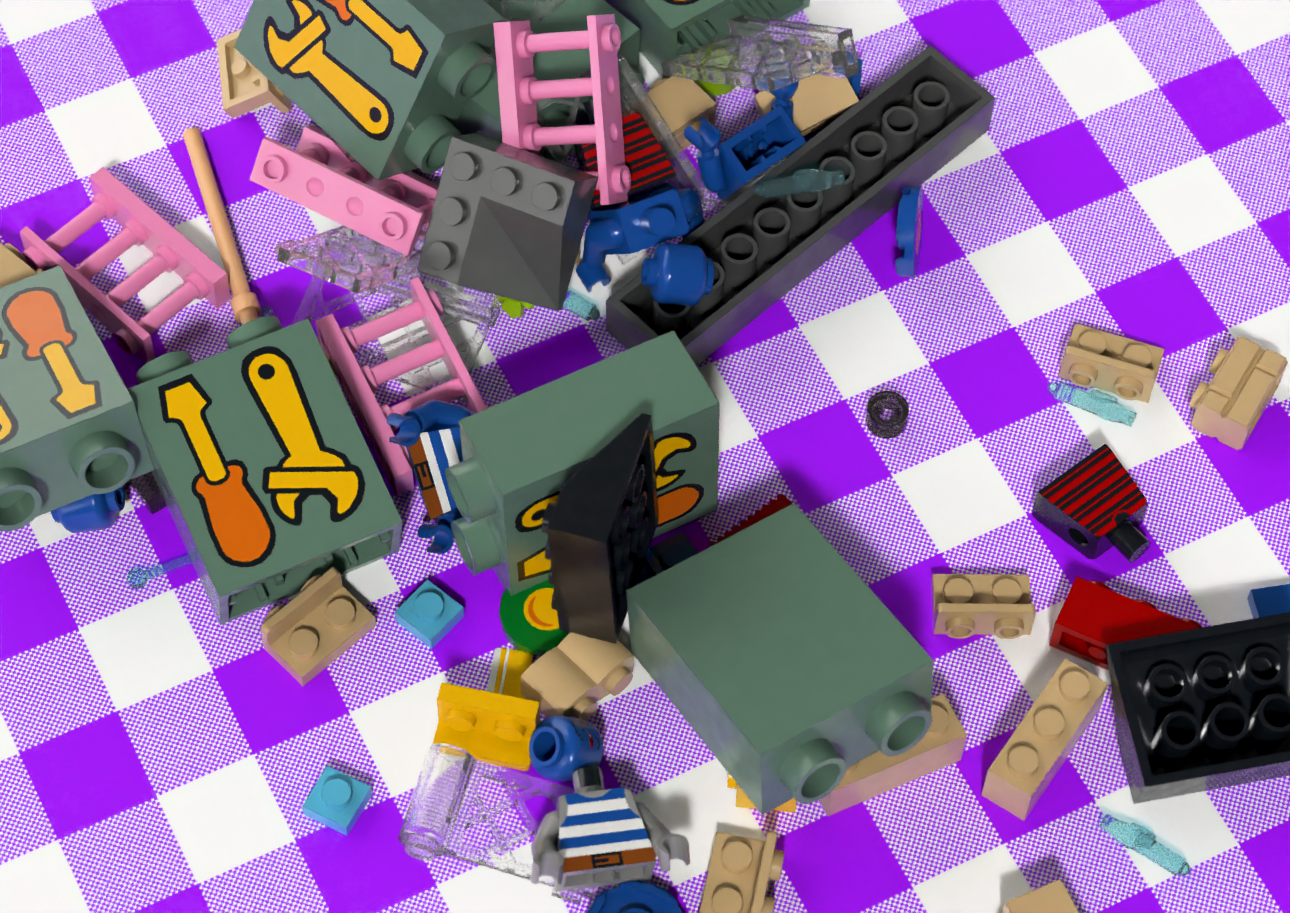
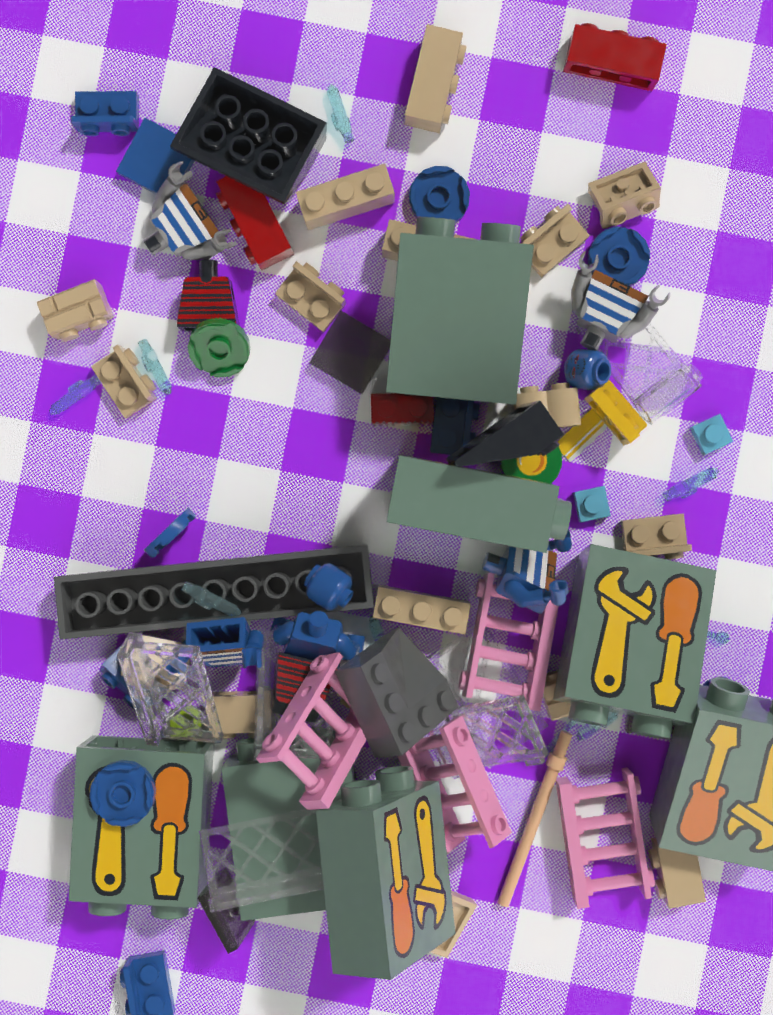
camera: 145 degrees left, 30 degrees up
(316, 722) = (689, 486): none -> clear light blue piece
(545, 350) = (422, 609): none -> tan brick
(877, 406) = (269, 431): clear smoke bush -> none
(892, 569) = (351, 352): none -> clear smoke tile
(930, 837) = (439, 194): none -> blue tile
(1036, 463) = (219, 347): none -> green tile
(1154, 315) = (76, 392): none -> clear light blue piece
(1204, 569) = (184, 221): none -> torso

